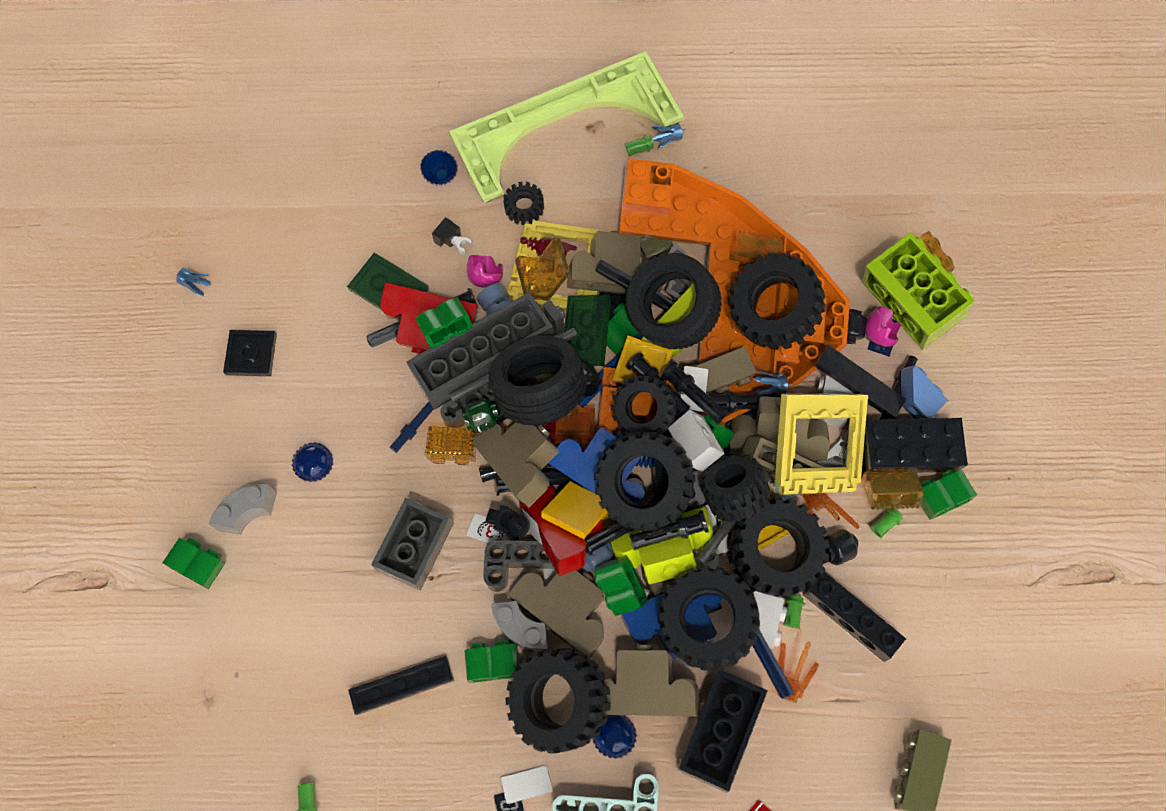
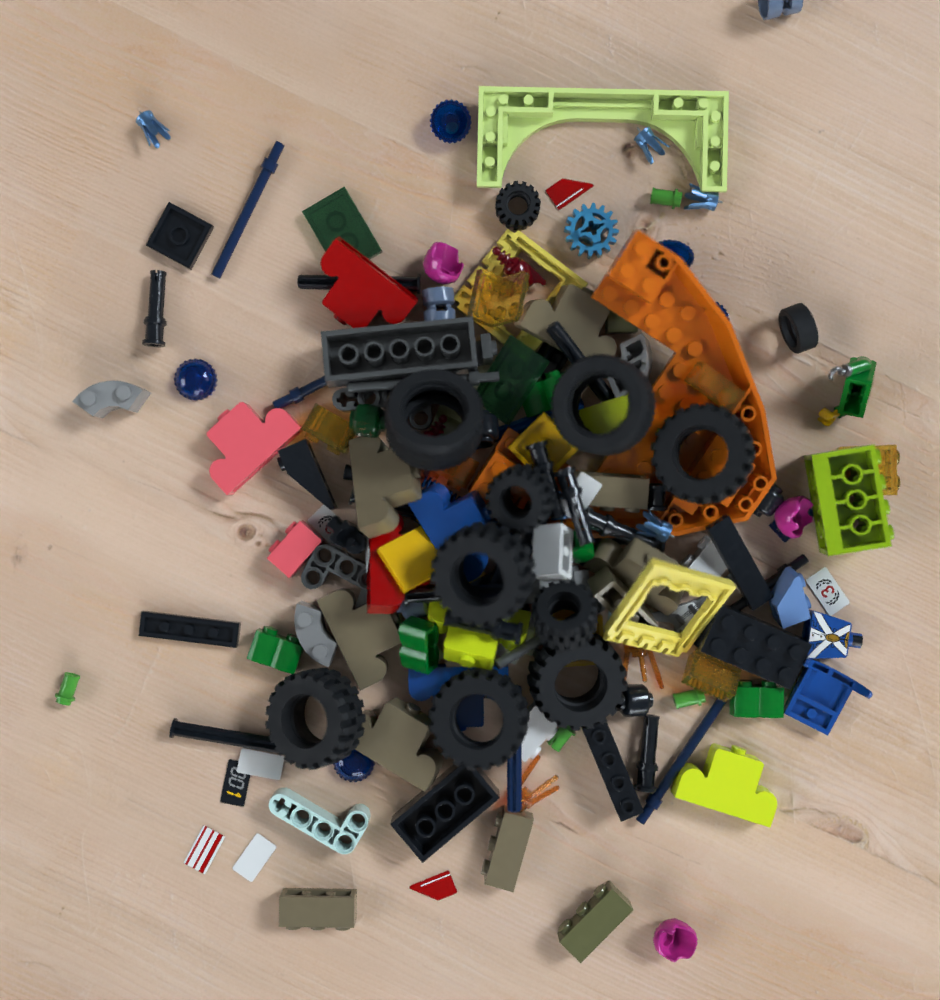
camera: 20 degrees right, 20 degrees up
(193, 562) = (47, 427): green brick -> none
(256, 428) = (154, 321): none -> black pin
(303, 267) = (268, 167): none -> dark blue bar
(382, 488) = (248, 443): none -> coral brick
(412, 544) = (251, 510): dark grey brick -> none
(444, 322) = (374, 309): green brick -> none
(444, 489) = (304, 468): none -> black slope
(449, 234) = (427, 203): pearl dark grey piece -> none
(466, 561) = (295, 548): none -> coral brick
(483, 771) = (221, 736): none -> black axle
(557, 178) = (566, 191): none -> red sticker
(593, 194) = (601, 227): none -> dark azure gear
(601, 112) = (646, 137): none -> flat silver piece
(760, 361) = (656, 497): none -> black bush
(798, 186) = (798, 328): none -> black tyre
(802, 743) = (507, 849): none -> dark tan brick
(870, 207) = (856, 389): none -> green torso
(884, 599) = (647, 765): none -> black pin
(910, 630) = (654, 800): none -> dark blue bar
(949, 378) = (827, 591): none -> white sticker
(967, 581) = (727, 785): none -> neon yellow brick
(973, 407) = (829, 636): none -> torso
(998, 463) = (821, 695): none -> blue piece
(1008, 751) = (675, 940): none -> dark pink hair

